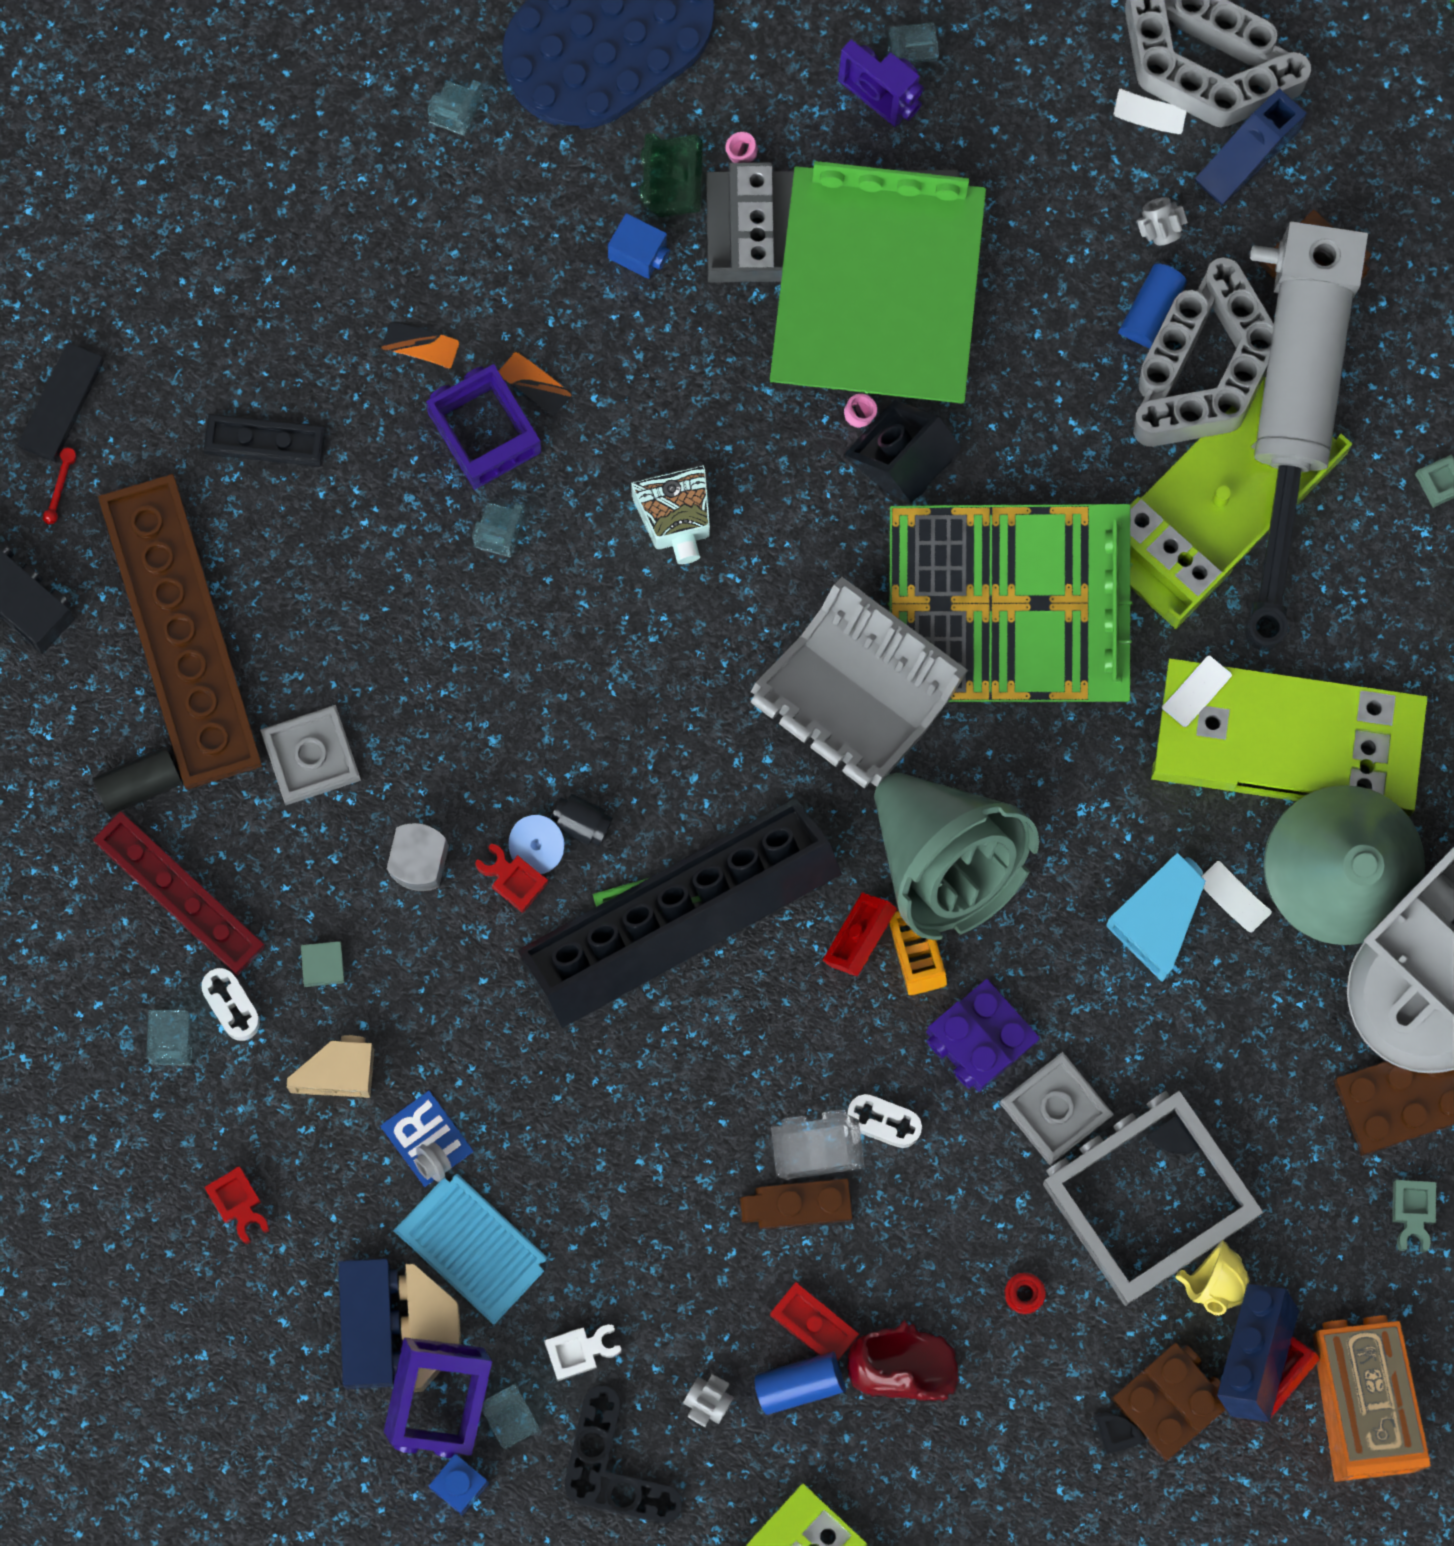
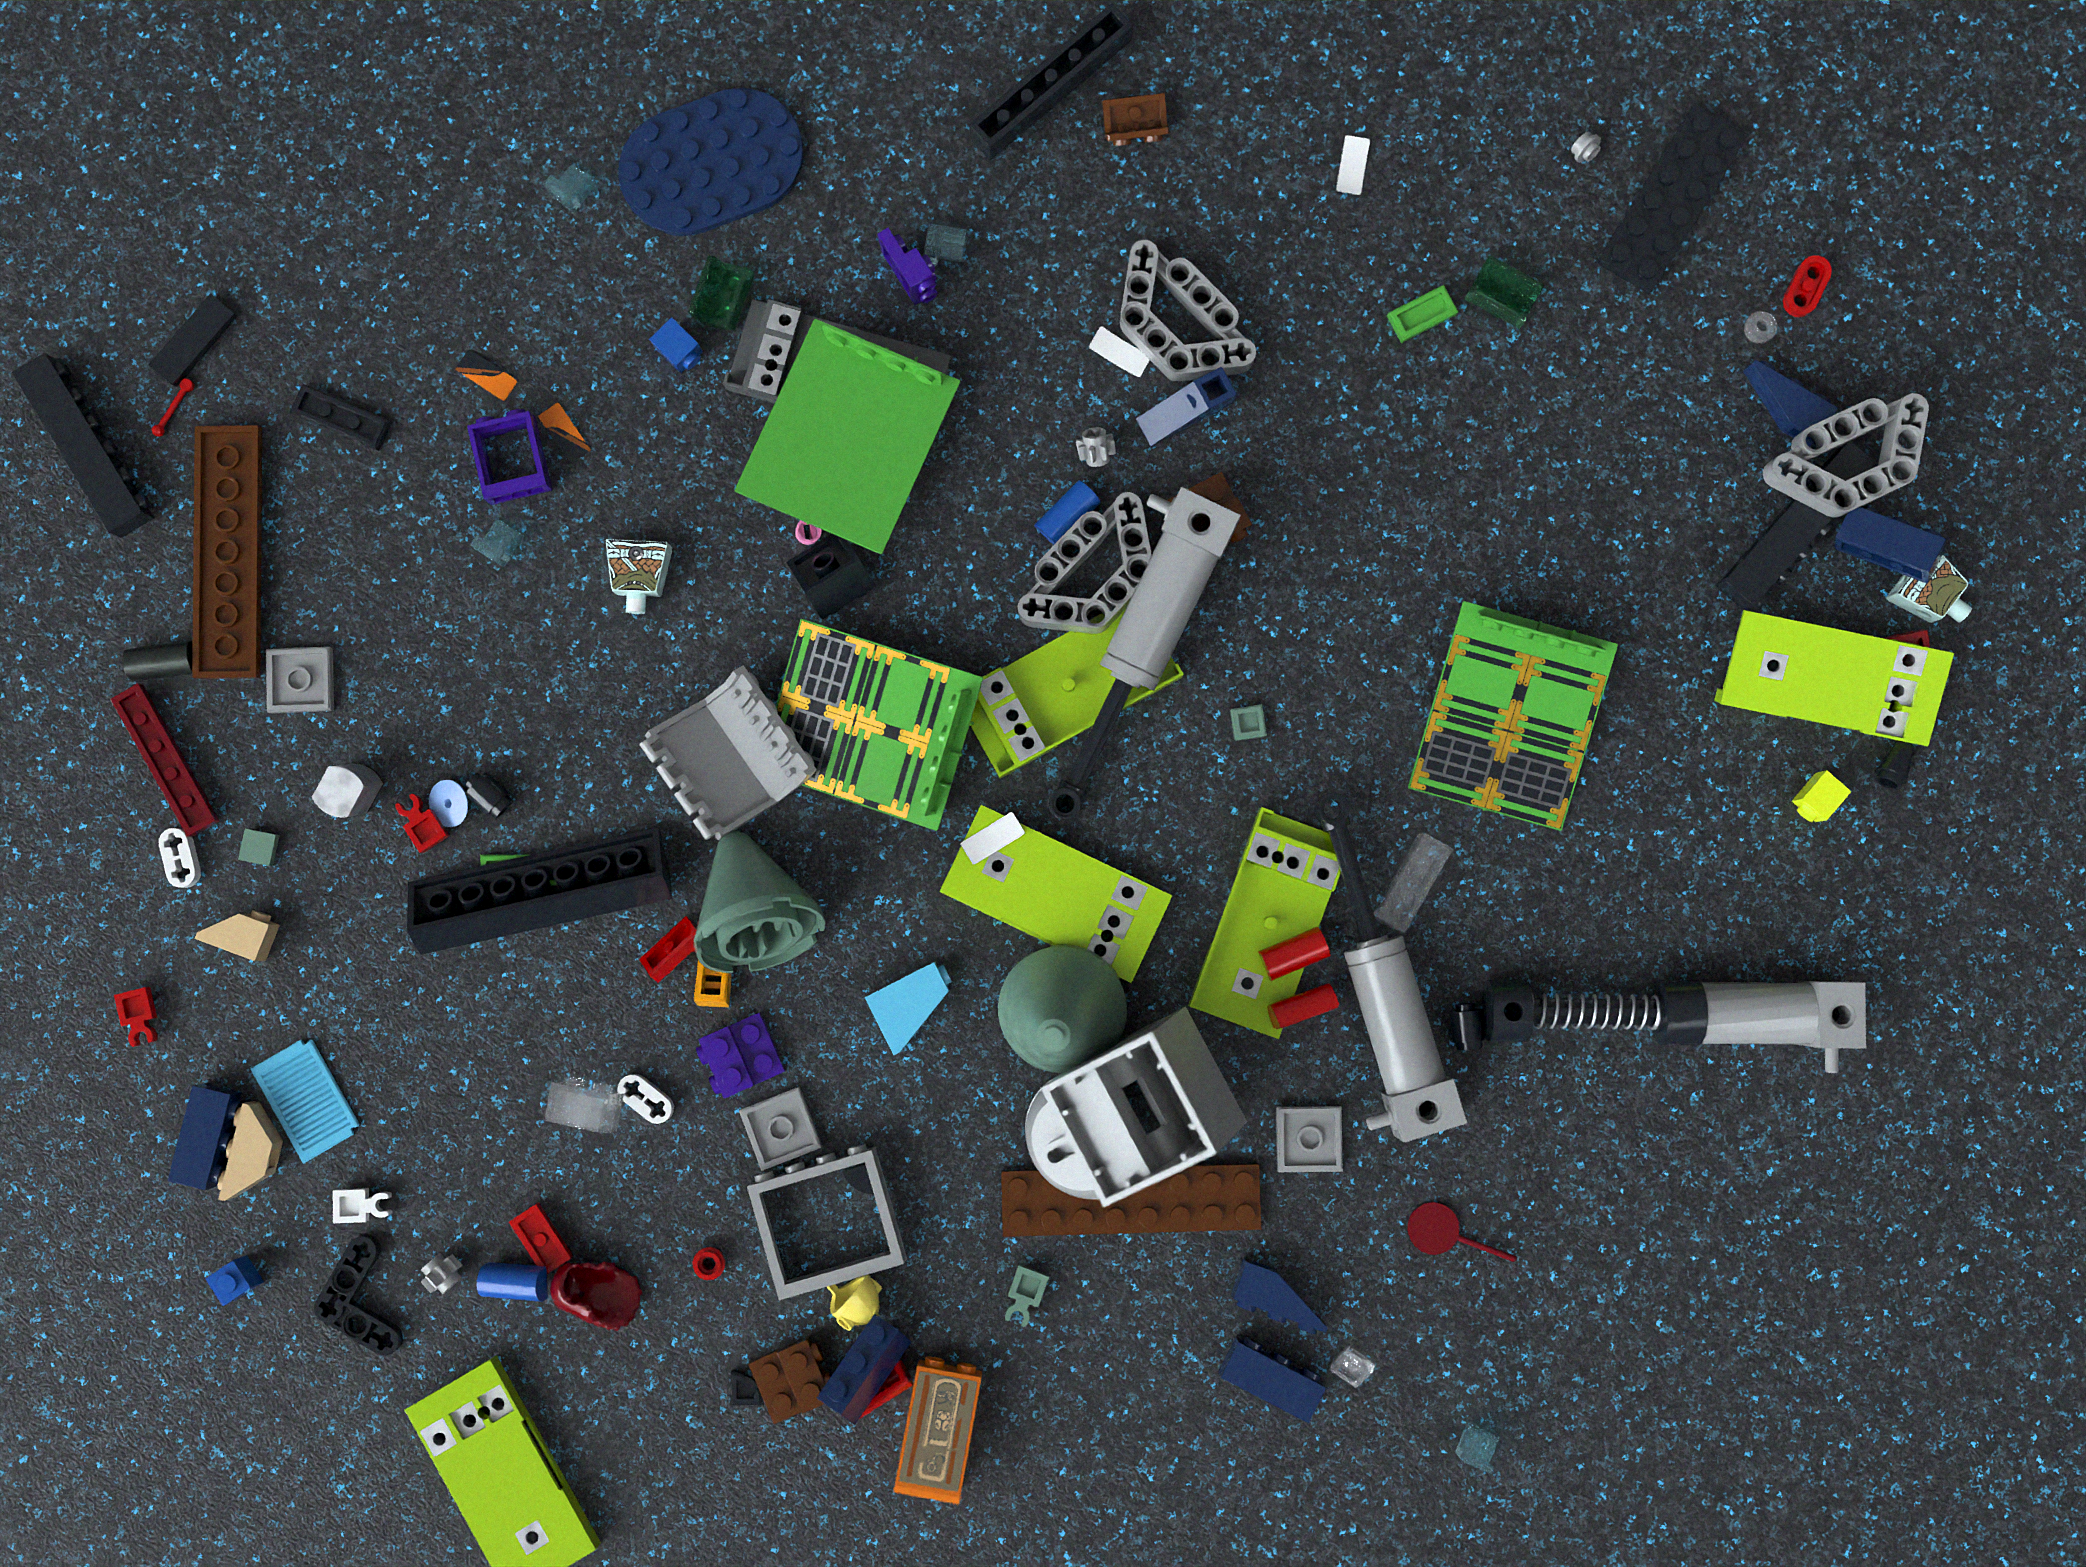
camera: 20 degrees right, 10 degrees up
(168, 1037) = (119, 872): clear light blue panel -> none
(422, 1124) = (298, 1005): blue sticker -> none
(432, 1161) = (291, 1027): light grey plate -> none
(442, 1357) = (230, 1183): dark purple window -> none
(509, 1417) = (292, 1237): clear light blue panel -> none
(735, 148) = (780, 287): bright pink hinge -> none
(798, 1204) = (560, 1142): reddish brown hinge -> none
(1234, 897) = (973, 1004): white sticker -> none

